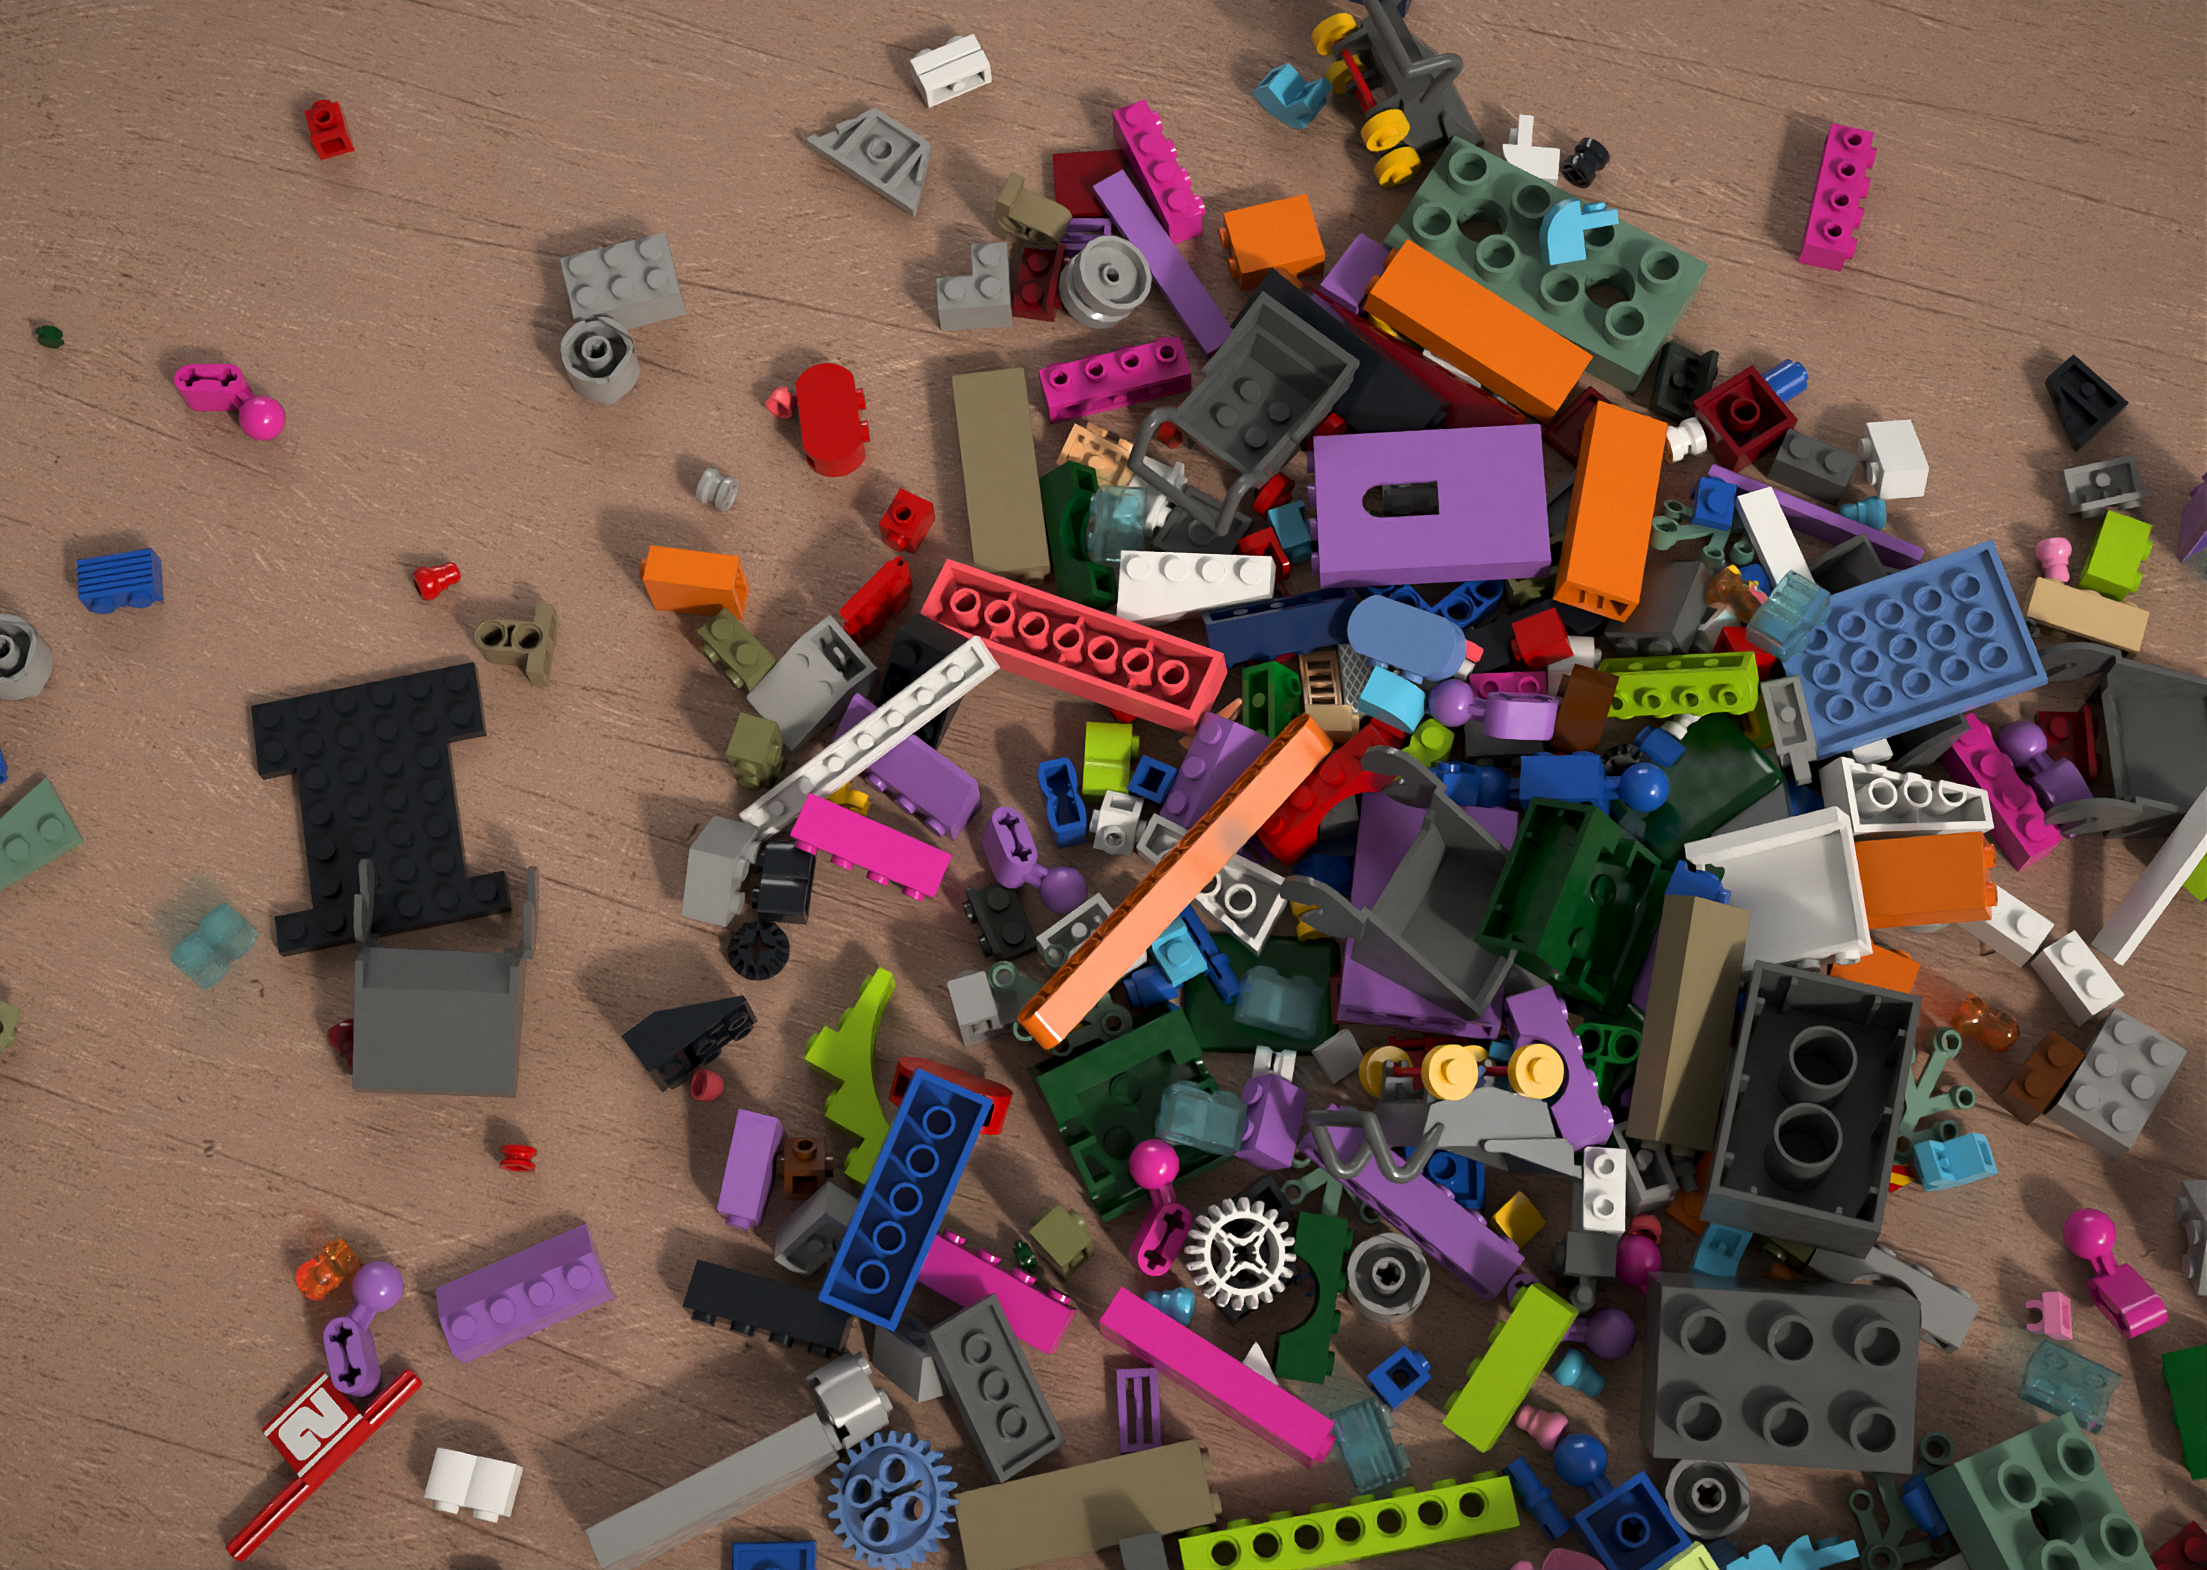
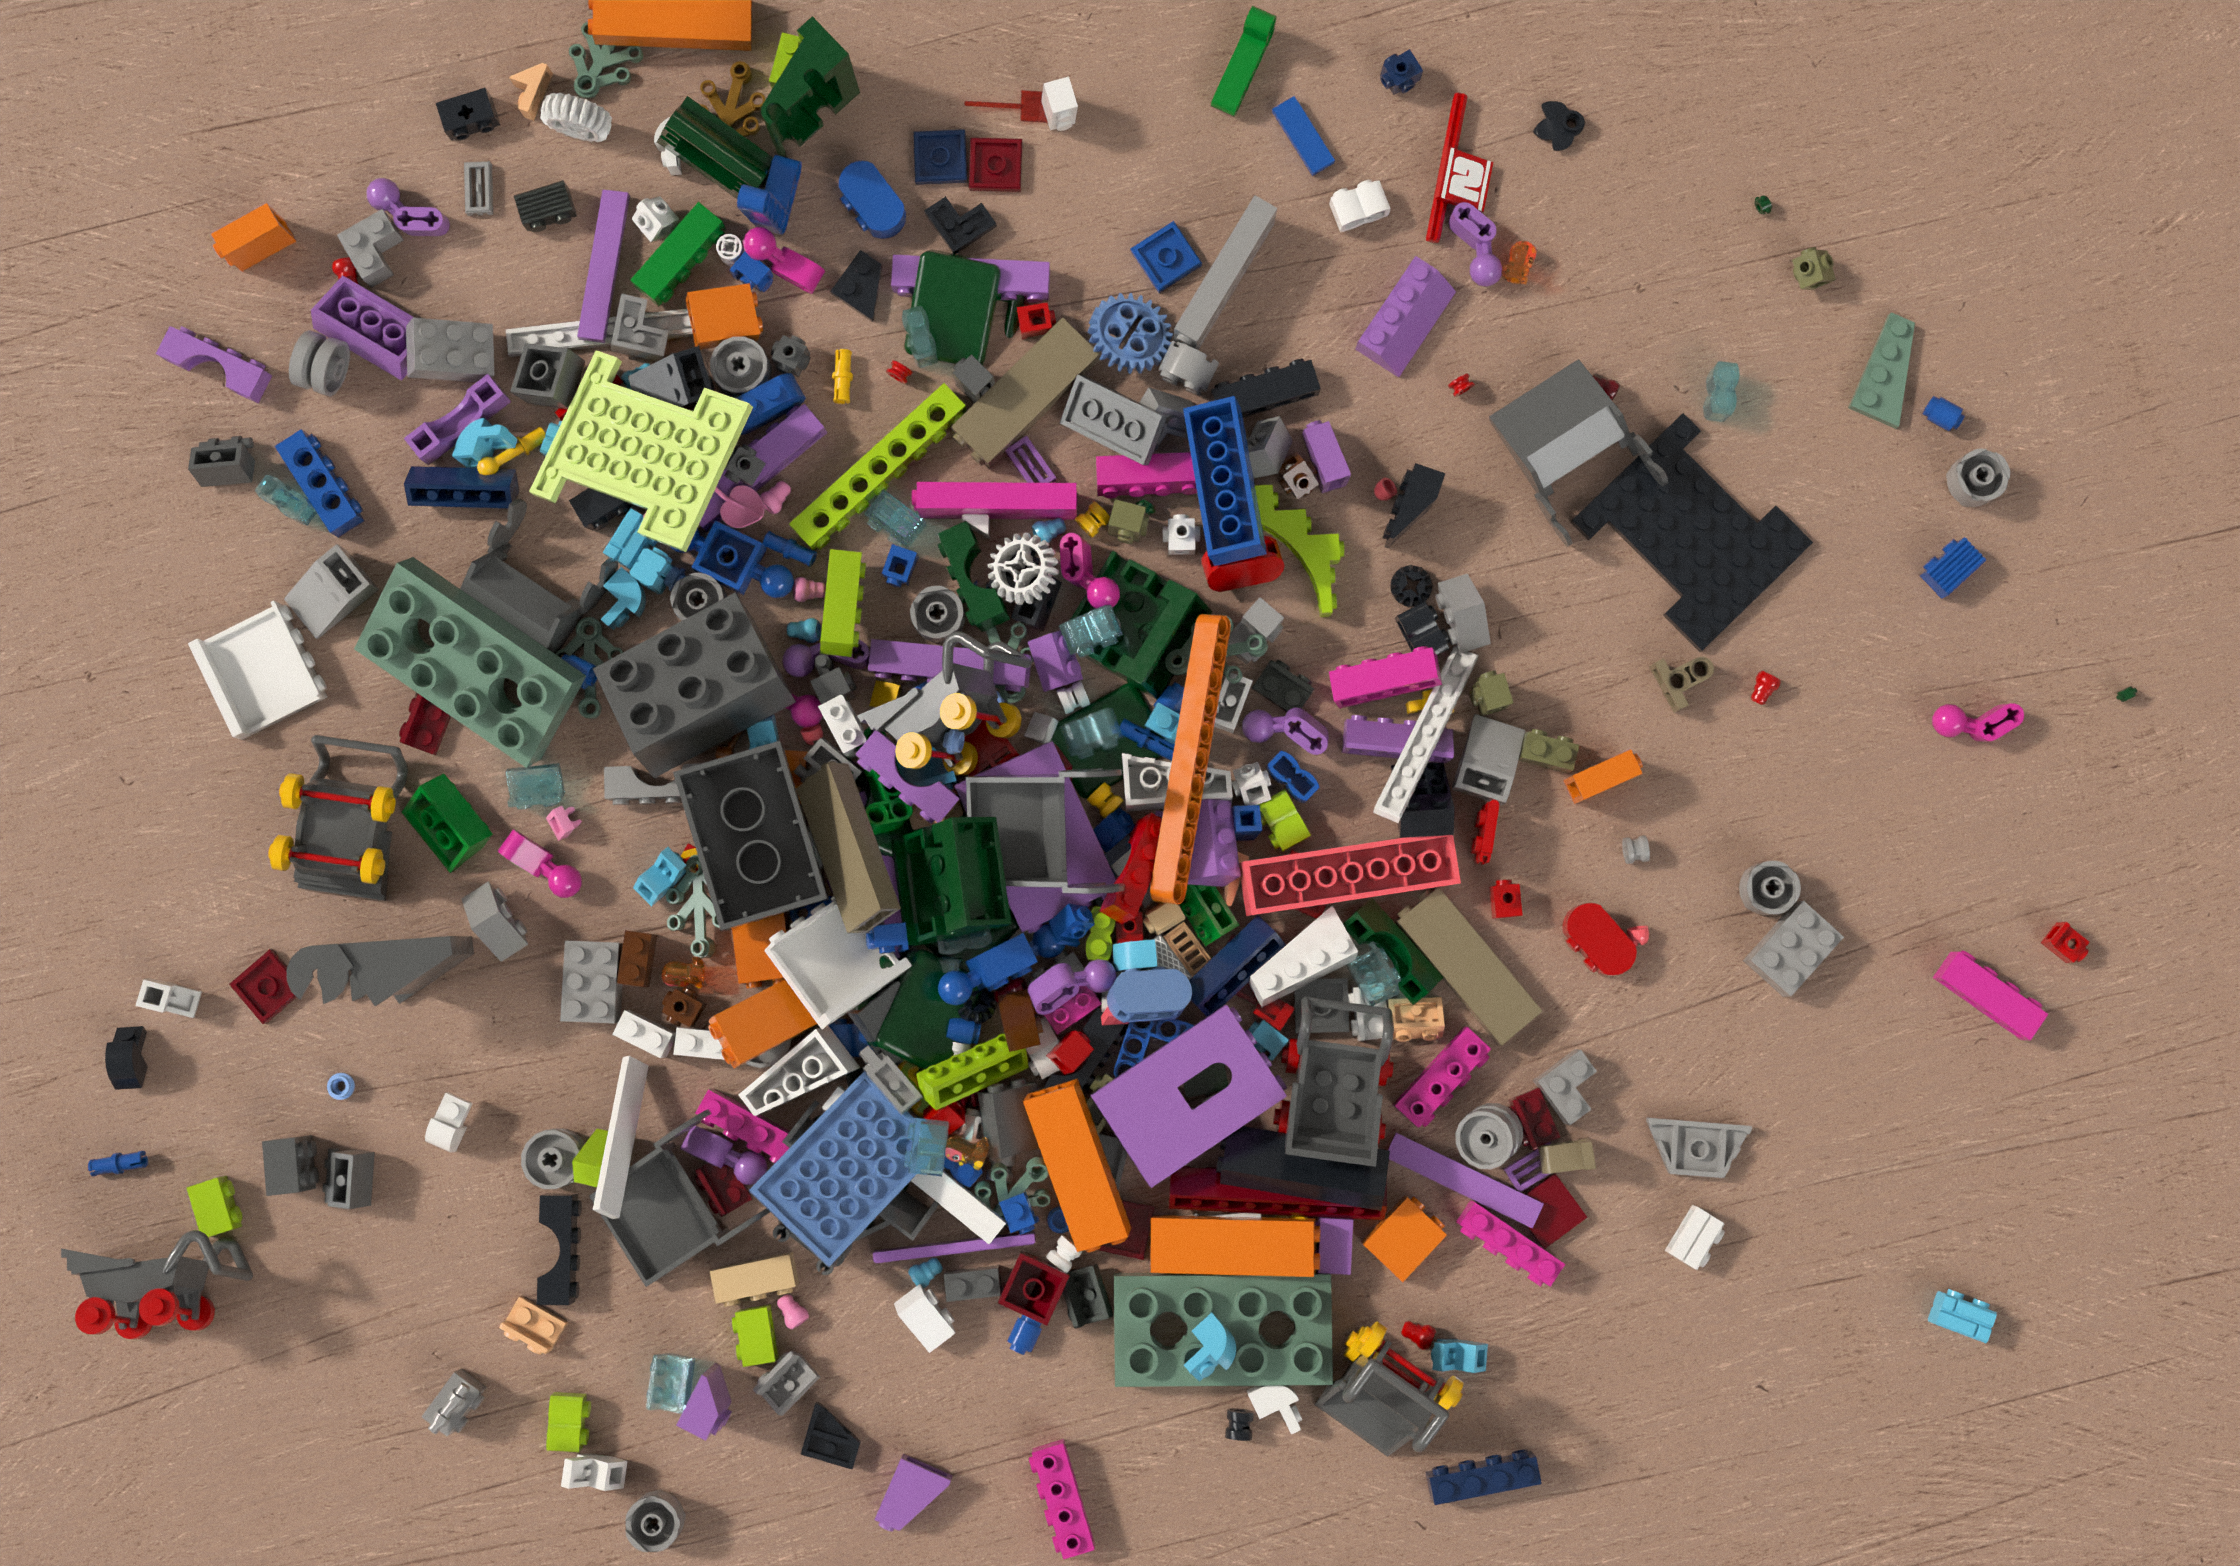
camera: 145 degrees right, 15 degrees up
(148, 1427) = (1555, 126): none -> black plate
(451, 121) = (1990, 995): none -> dark pink brick
(1003, 1171) = (1181, 544): none -> white brick
(1112, 1278) = (1091, 524): none -> yellow wheel
(1319, 141) = (1419, 1334): none -> red piece
(1669, 482) = (1056, 1220): none -> blue plate
(2009, 981) = (692, 1007): none -> reddish brown brick
(2014, 296) = (909, 1492): none -> medium lavender slope

